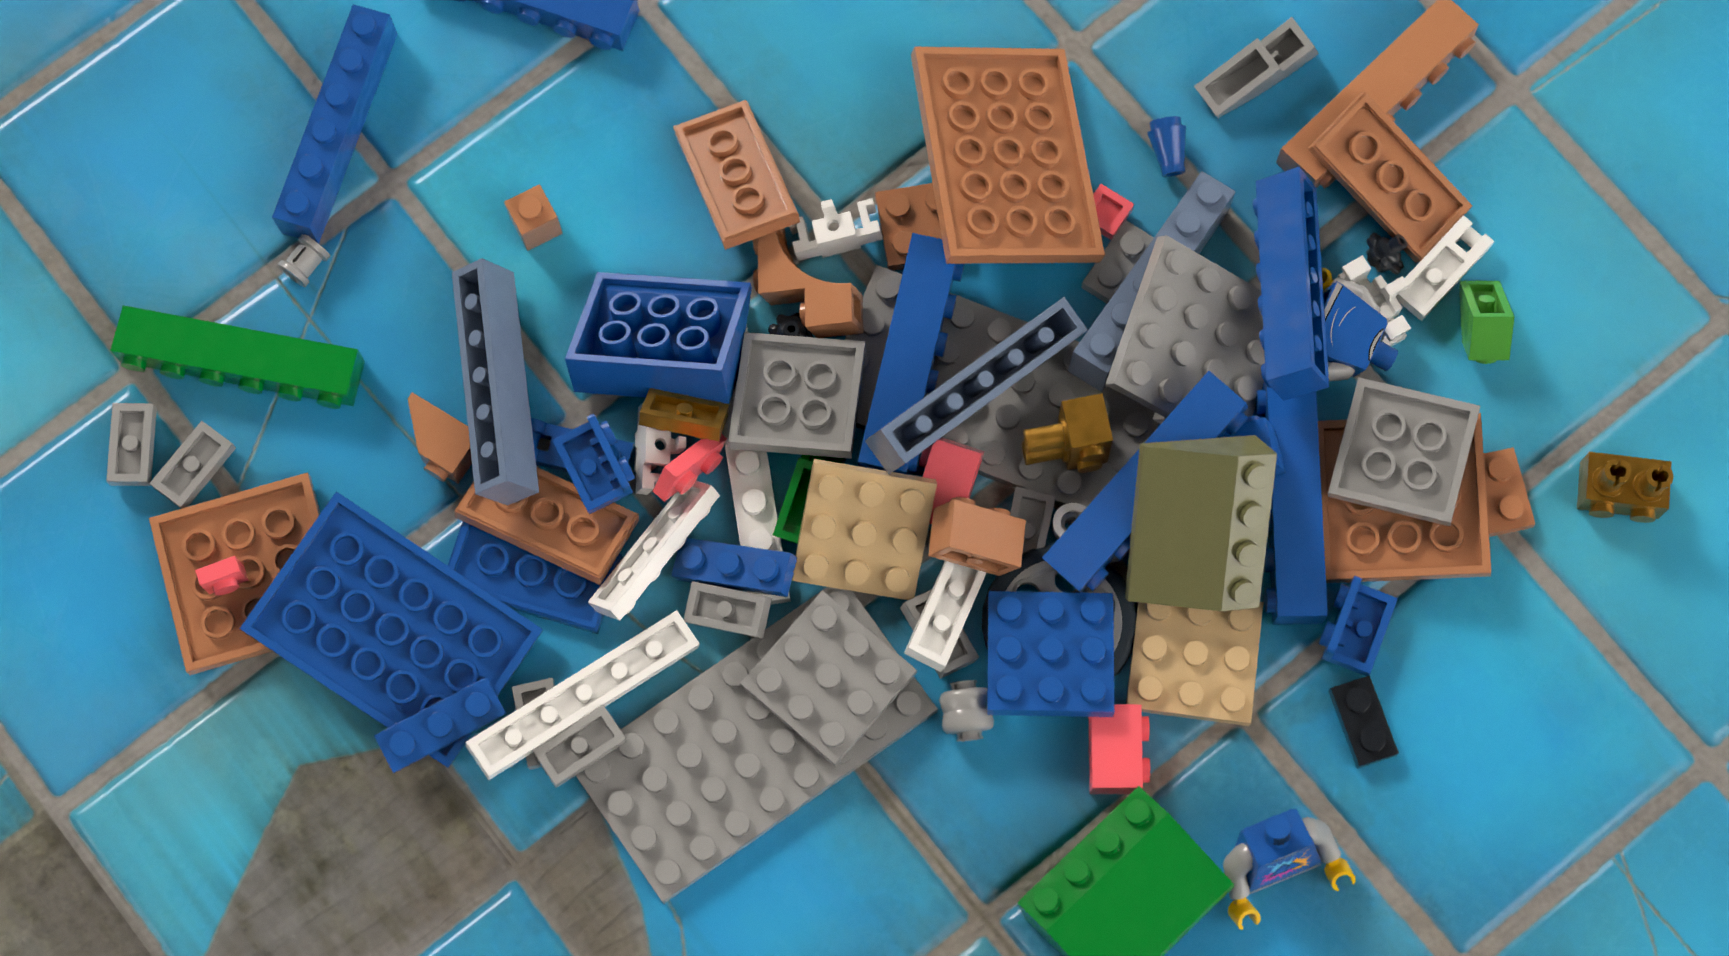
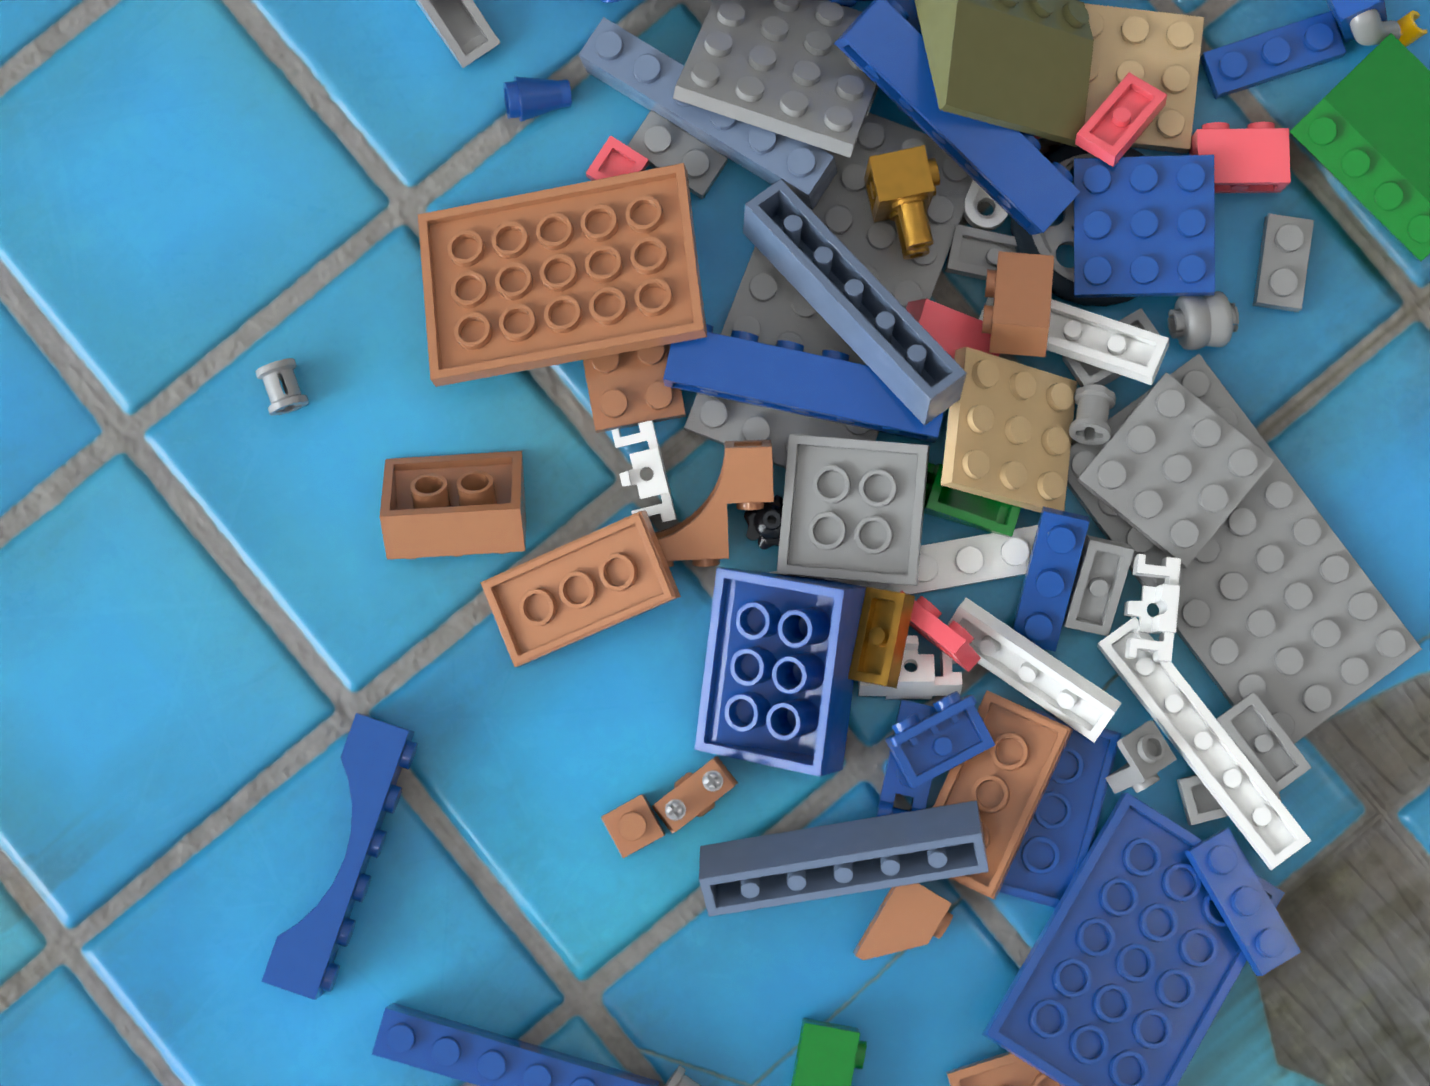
camera: 90 degrees left, 10 degrees up
(557, 267) = (694, 794): none -> nougat piece
(573, 639) = (1146, 756): none -> light grey bracket
(710, 663) = (1166, 598): none -> white piece
(812, 76) = (453, 505): none -> nougat slope
(880, 606) = (1092, 414): none -> light grey bush
(1022, 791) = (1283, 262): none -> light grey plate
(1148, 633) = (1121, 119): none -> coral plate
(1215, 785) = (1273, 54): none -> blue plate

